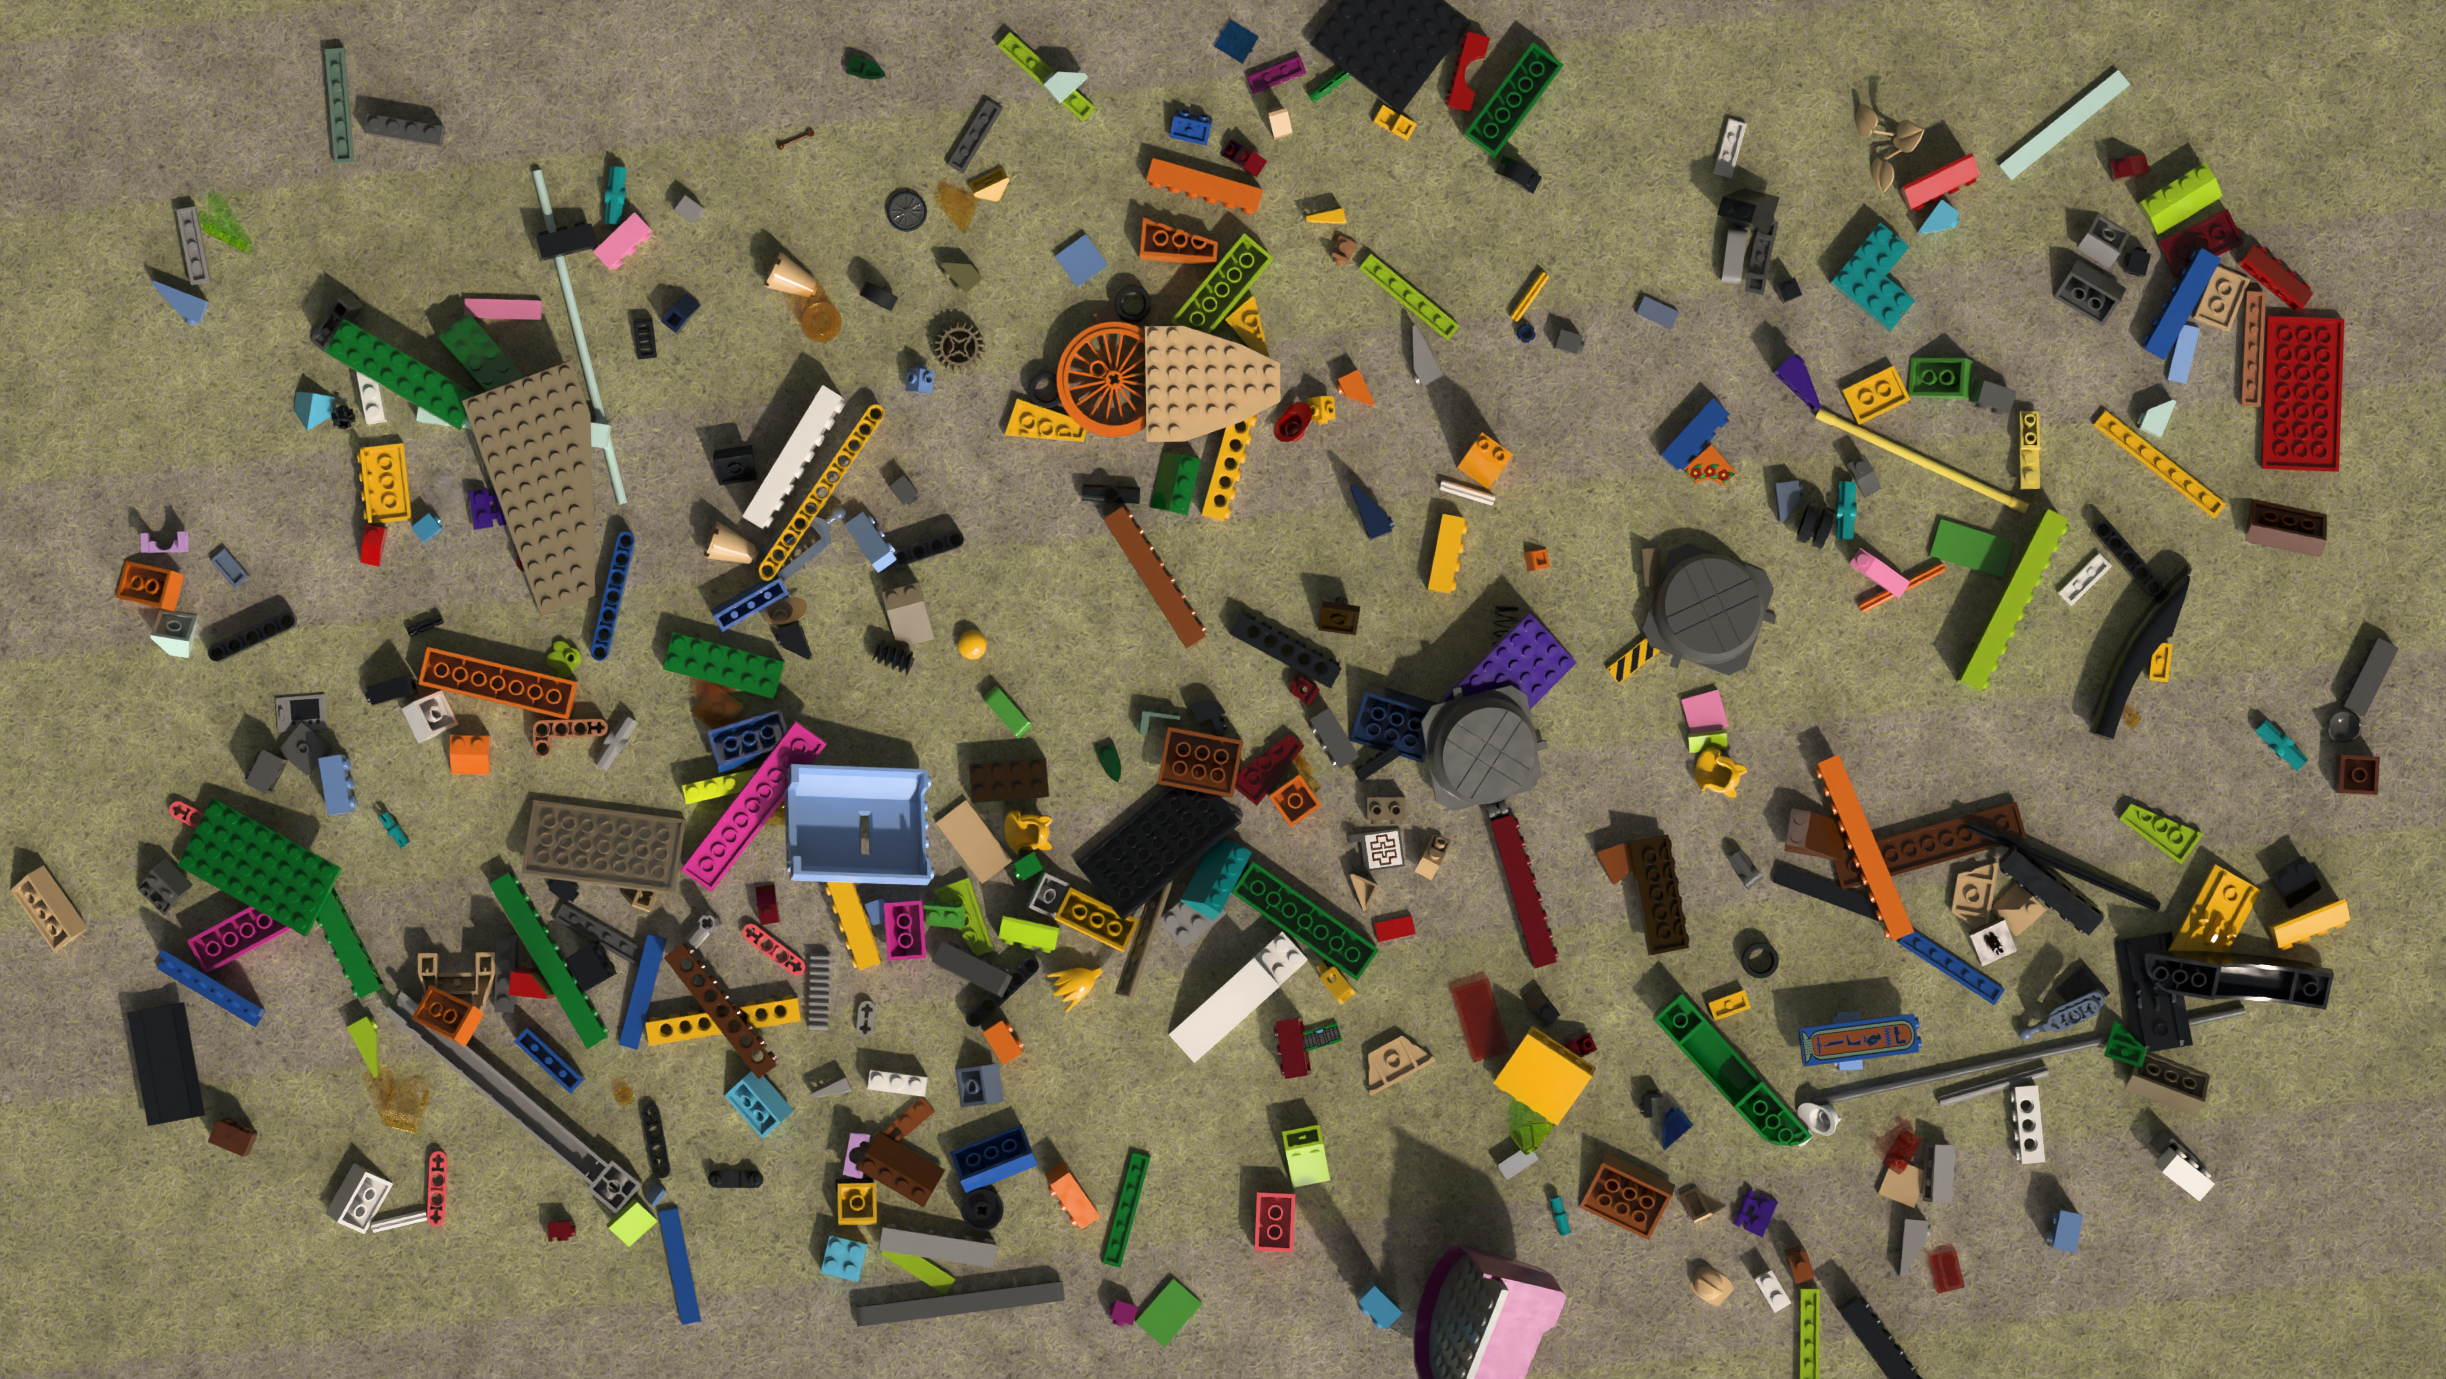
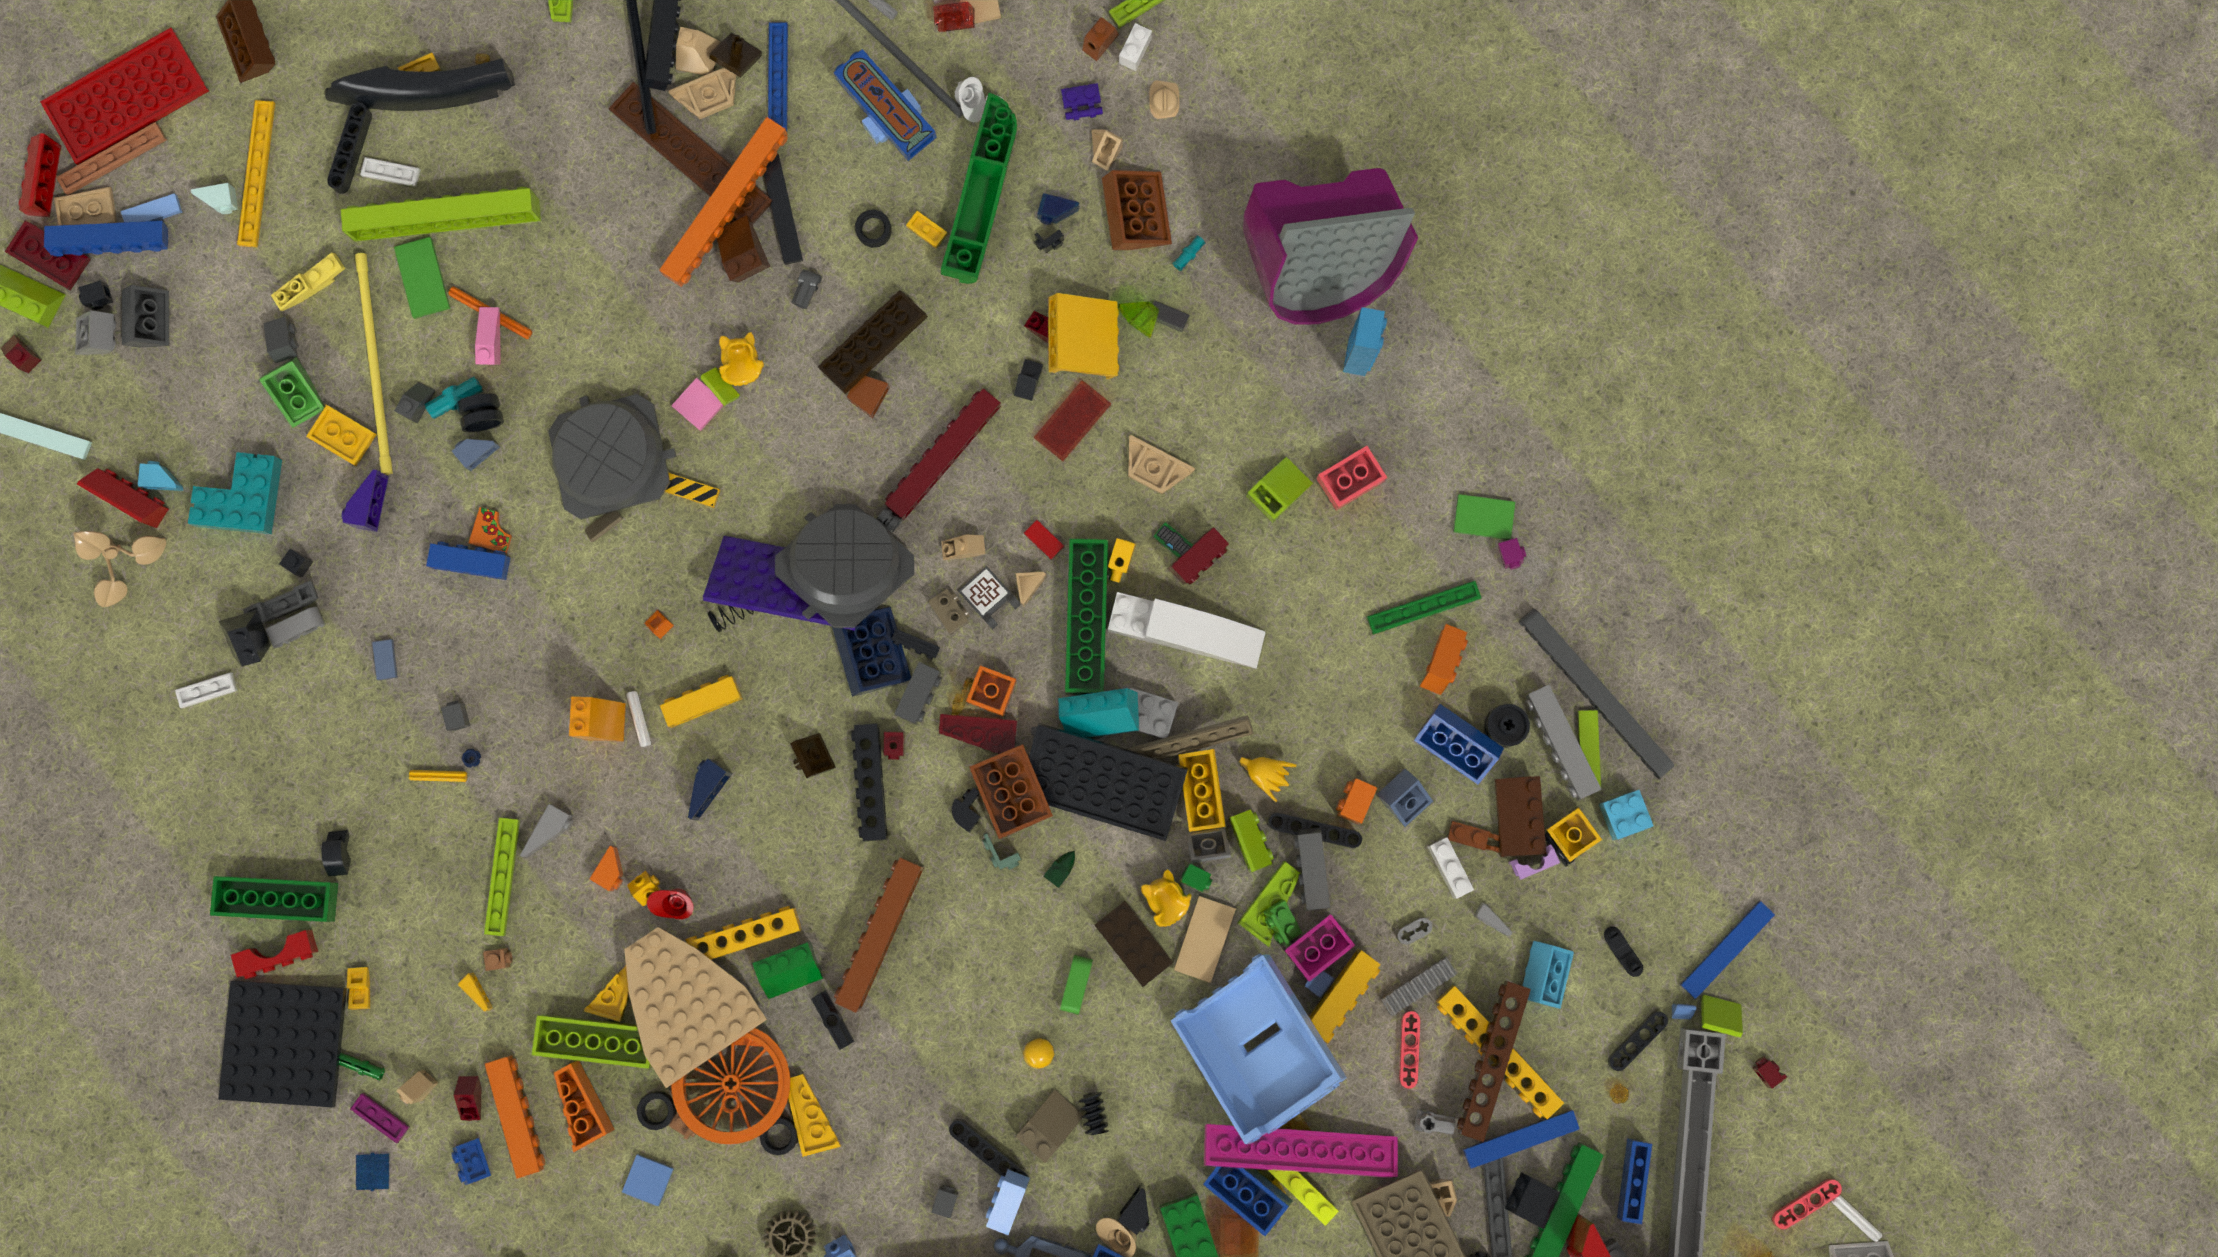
camera: 120 degrees left, 5 degrees down
(767, 904) = (1376, 1080): dark red slope -> none

